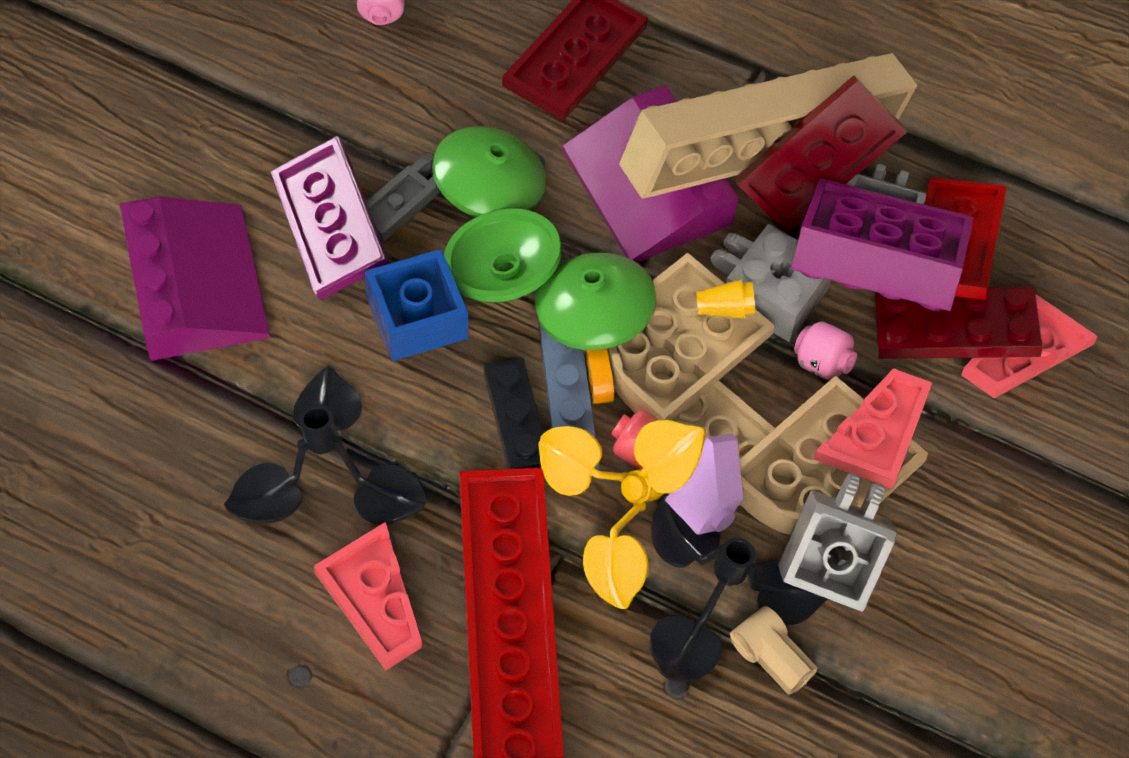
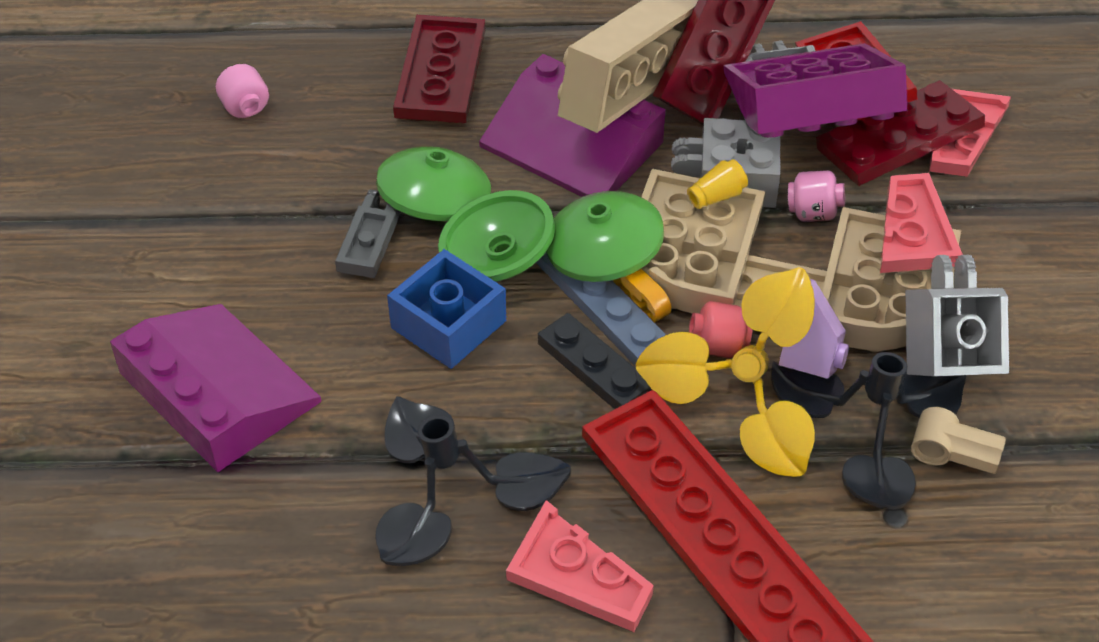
camera: 25 degrees left, 10 degrees down
(329, 217) = (315, 276): tile -> none

